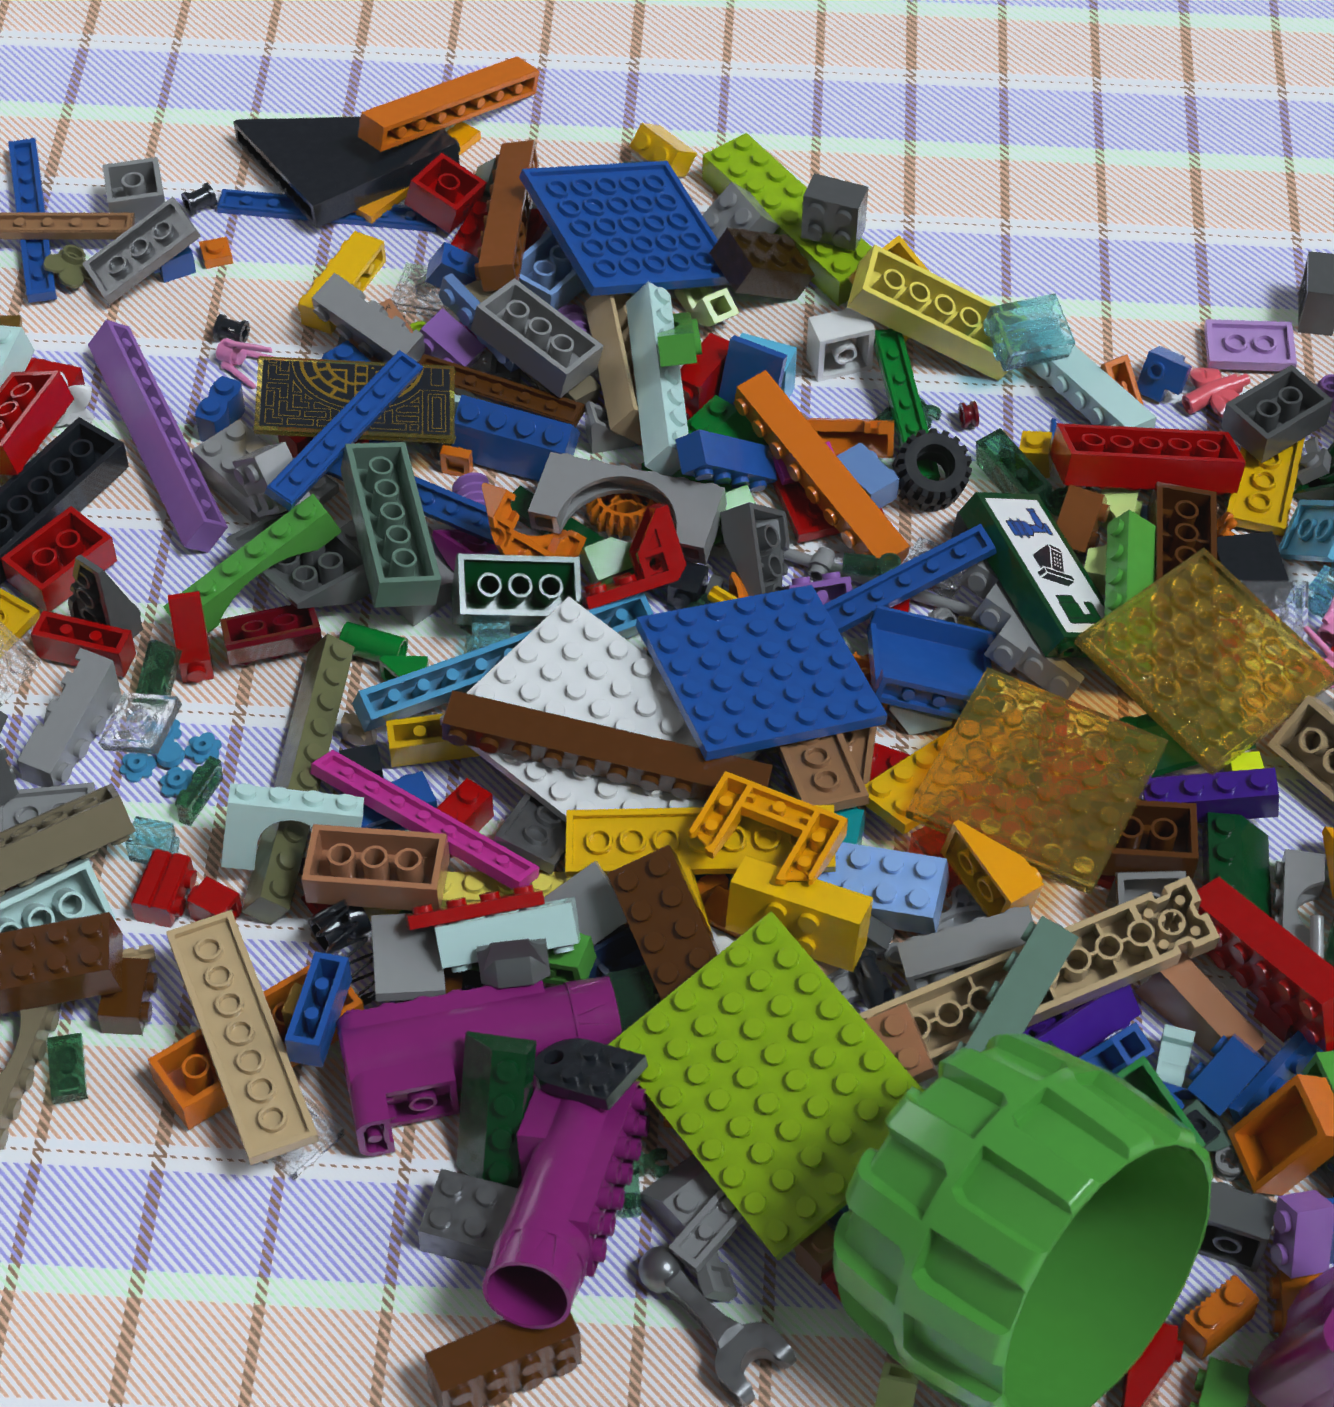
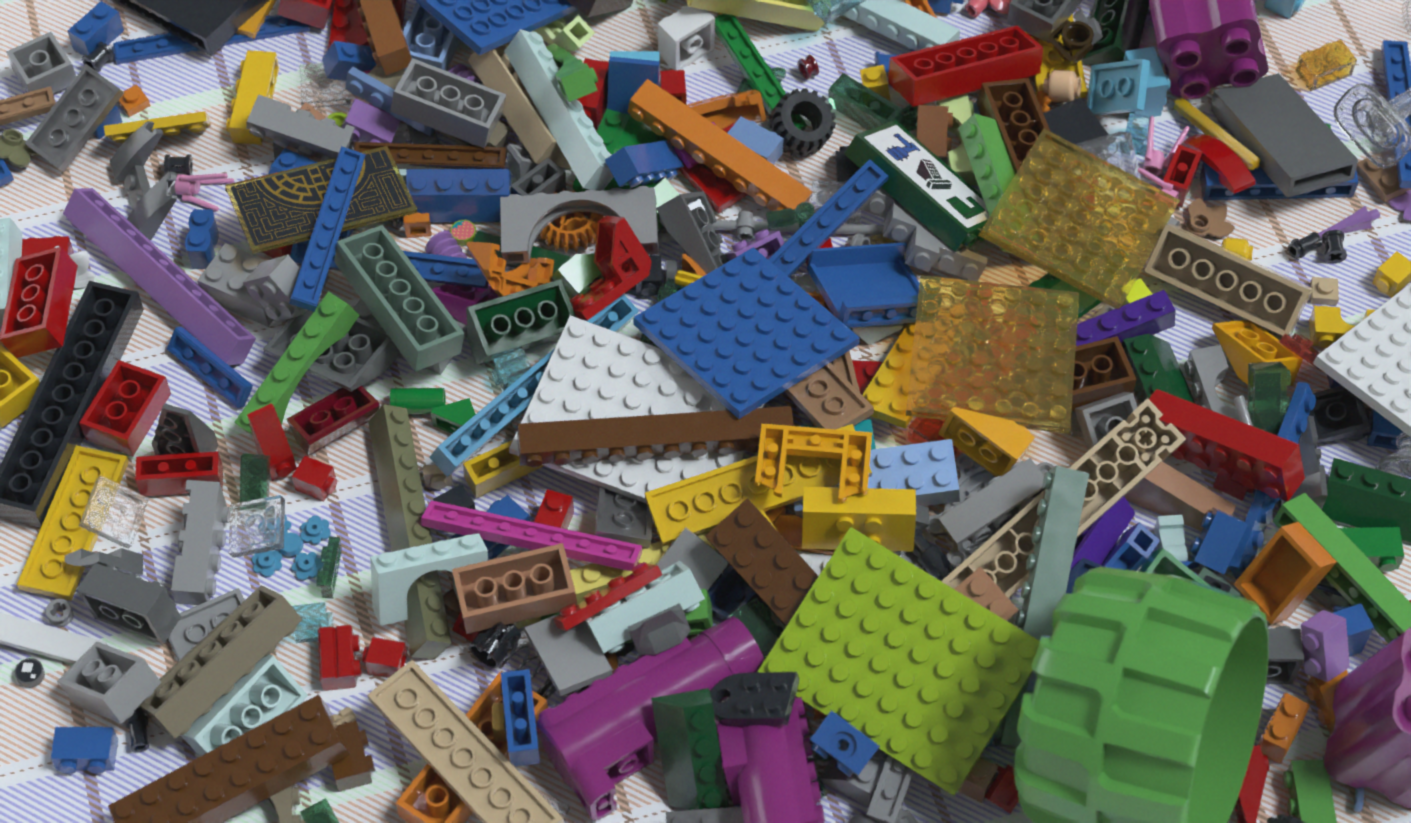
camera: 20 degrees left, 5 degrees up
(167, 542) = (209, 367): none -> blue tile
(183, 349) = (148, 204): none -> dark grey wedge
(213, 165) = (98, 25): none -> blue brick
(217, 282) = (169, 125): none -> yellow plate
(225, 692) = (314, 478): none -> red brick
(505, 479) = (463, 232): none -> tile
(610, 448) = (544, 178): none -> dark grey brick
(666, 1153) = (844, 744): none -> blue brick
(805, 393) = (674, 83): none -> red brick
(1255, 513) = (1062, 86): none -> light nougat head
(1291, 463) = (1076, 40): none -> dark brown piece

